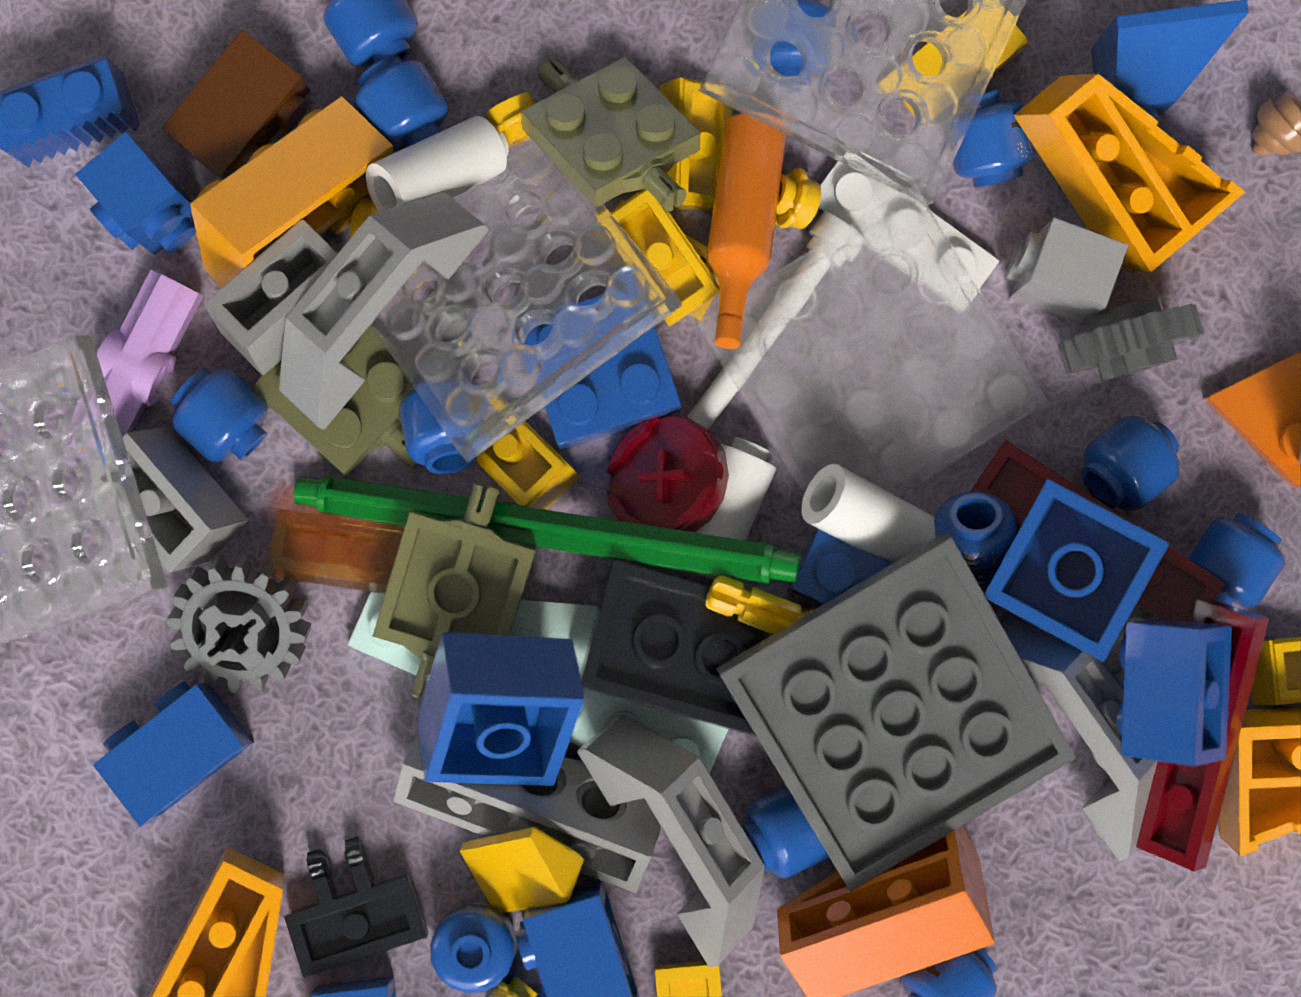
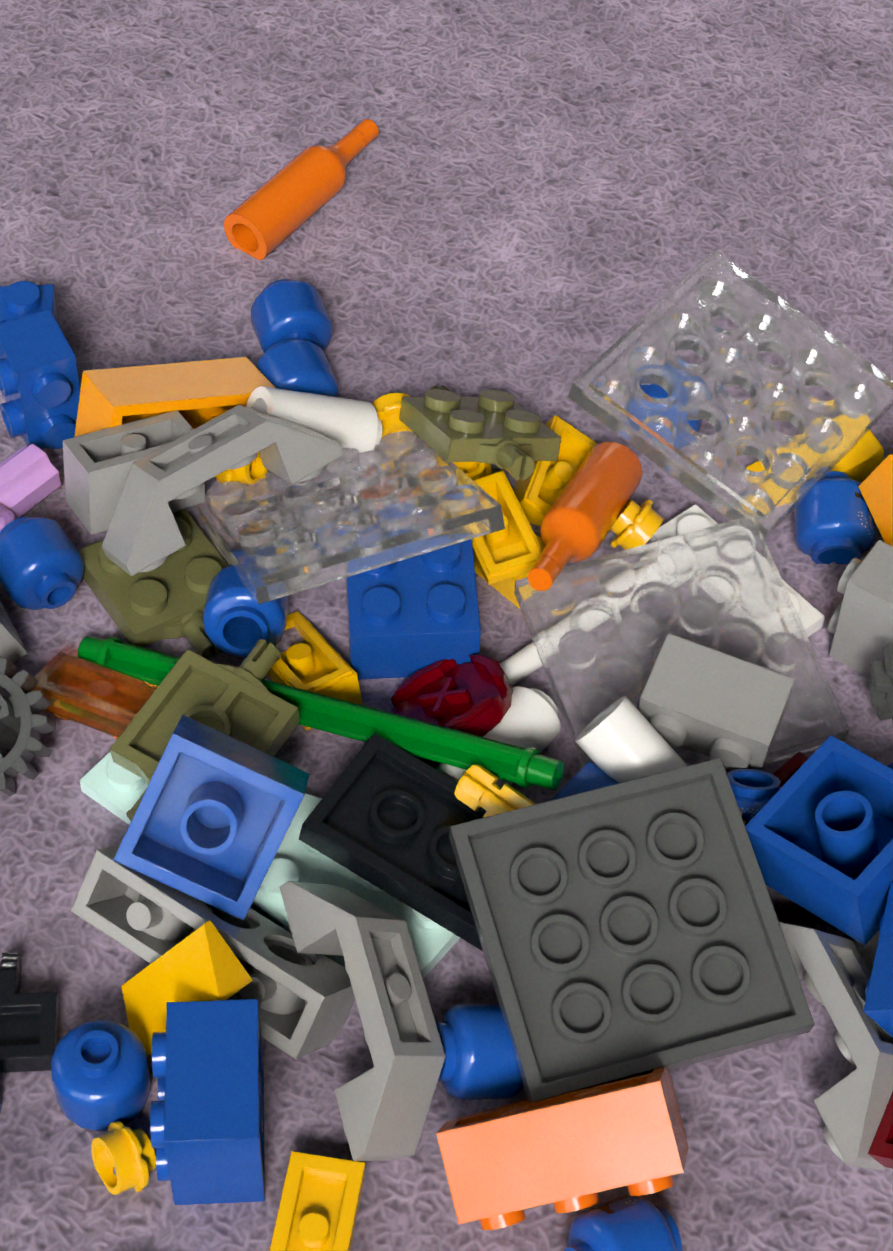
camera: 15 degrees right, 35 degrees down
(238, 106) = (155, 336): reddish brown brick -> none
(923, 439) = (715, 703): none -> light grey brick

